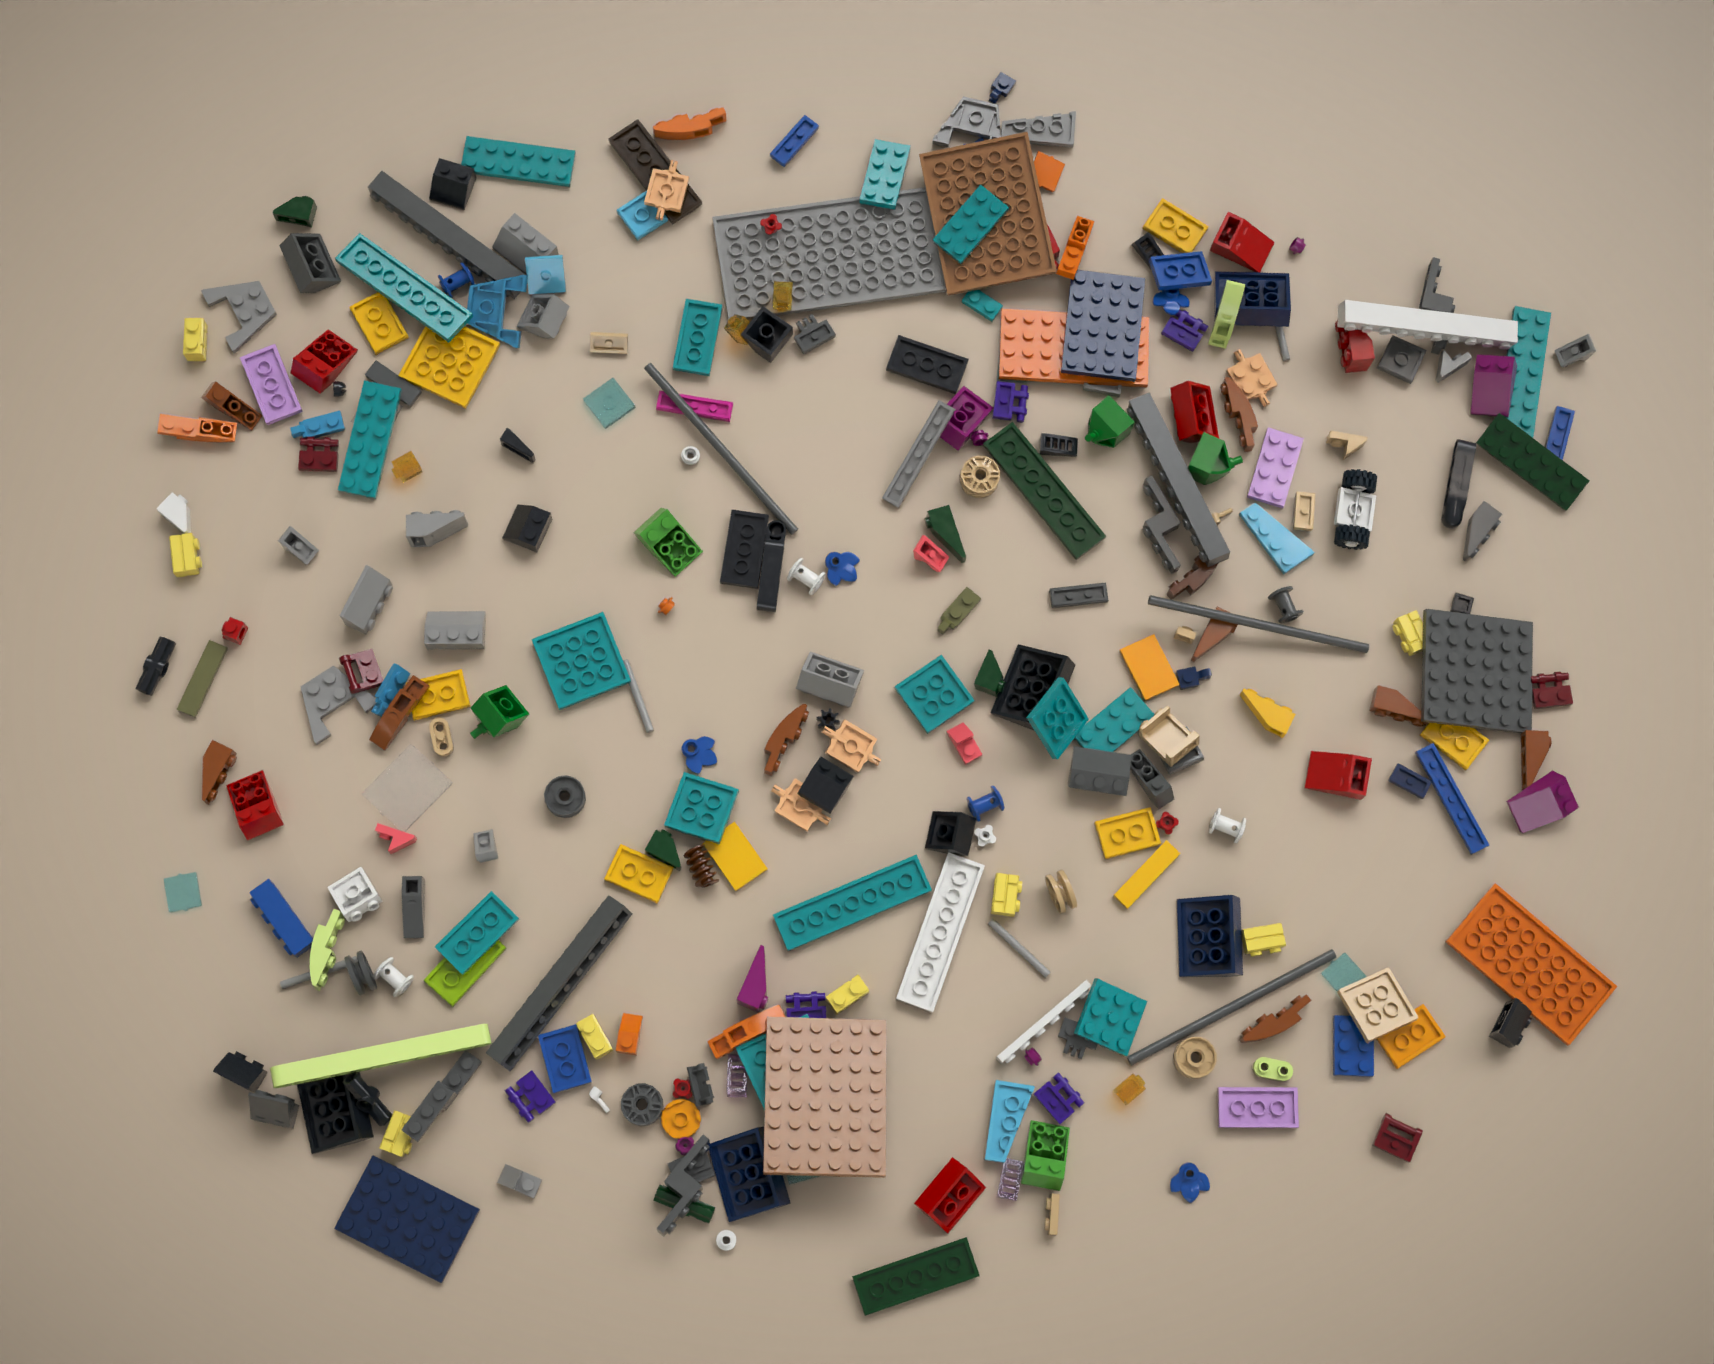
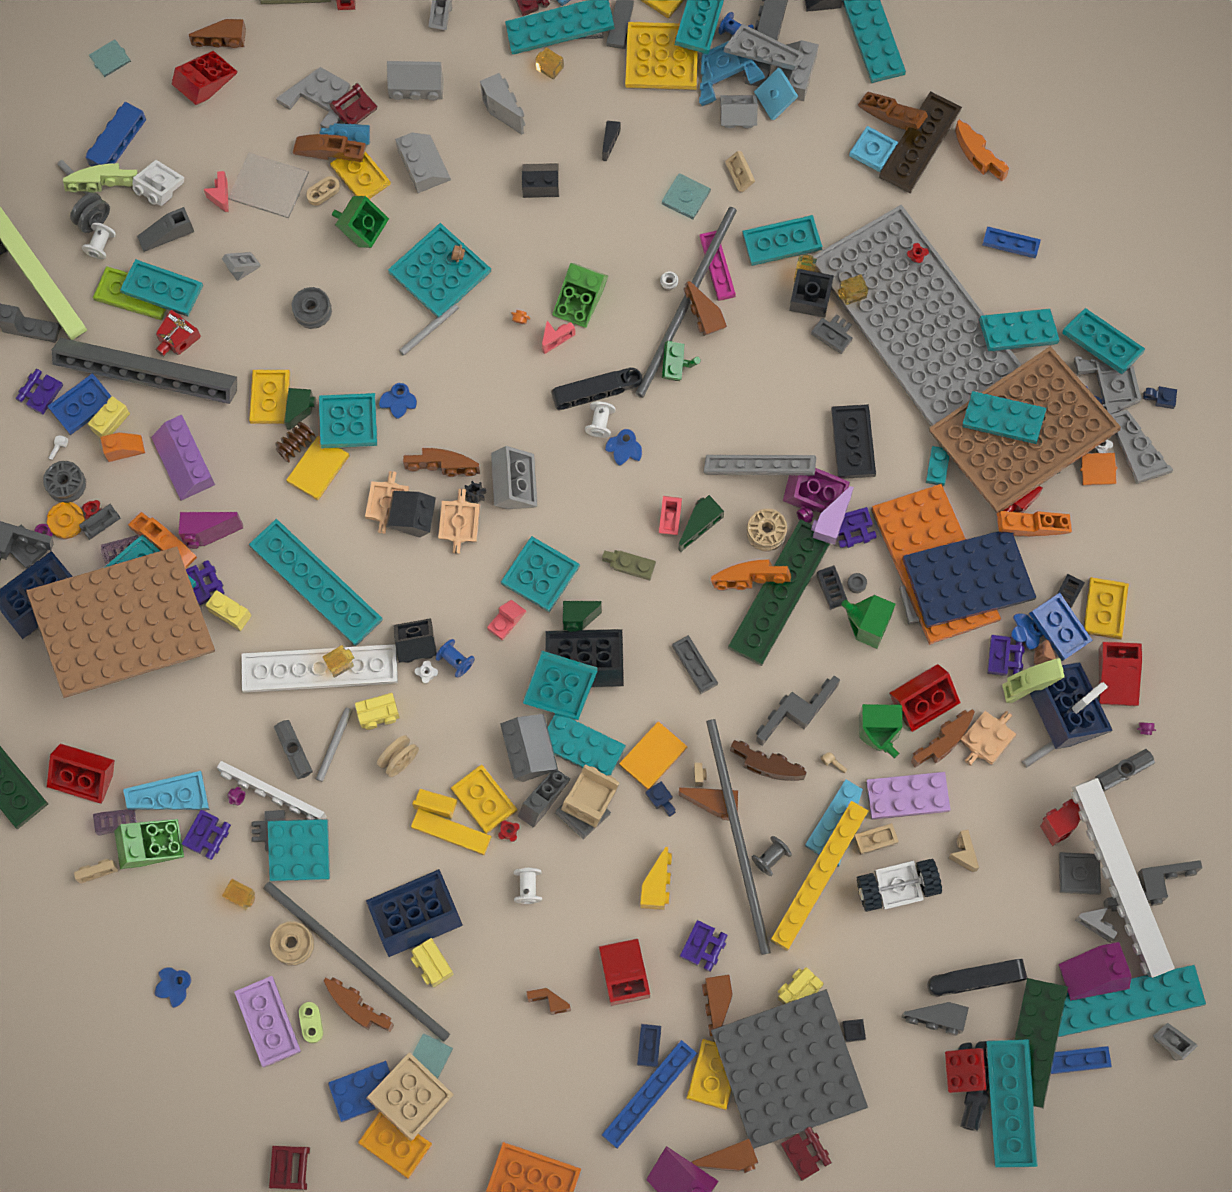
camera: 75 degrees right, 5 degrees down
(497, 264) = (759, 47): none -> light grey wing
(532, 938) = (176, 334): none -> red torso
(575, 635) = (457, 253): none -> medium nougat plate
(614, 181) = (891, 112): none -> dark orange slope
(666, 190) = (904, 155): light nougat plate -> none
(668, 981) = (182, 458): none -> medium lavender slope
(701, 585) = (554, 338): none -> coral slope
(744, 549) = (602, 357): black plate -> none
(746, 434) = (708, 314): none -> dark orange slope
(777, 485) = (674, 361): none -> plate
(929, 109) = (1103, 341): none -> teal plate
(946, 909) = (339, 660): none -> clear yellow brick
(1000, 415) = (831, 519): none -> lavender slope
(1016, 515) = (744, 574): none -> orange slope
(1023, 986) = (288, 739): none -> dark grey piece
(1062, 422) = (857, 583): none -> dark grey tile
(1114, 878) = (435, 803): none -> yellow panel
(1178, 480) = (846, 706): brick -> none
(1198, 296) = (1043, 653): none -> nougat slope
(1257, 276) = (1089, 697): none -> white tile
(1321, 571) = (819, 875): none -> yellow brick
(1326, 269) = (1135, 765): none -> dark grey piece
(1336, 701) = (697, 943): none -> dark purple plate
(1341, 846) = (556, 1004): none -> dark orange slope
(1532, 524) = (966, 1068): none -> red plate
(1559, 531) = (974, 1104): none -> black piece
(1577, 502) = (1012, 1103): none -> teal plate

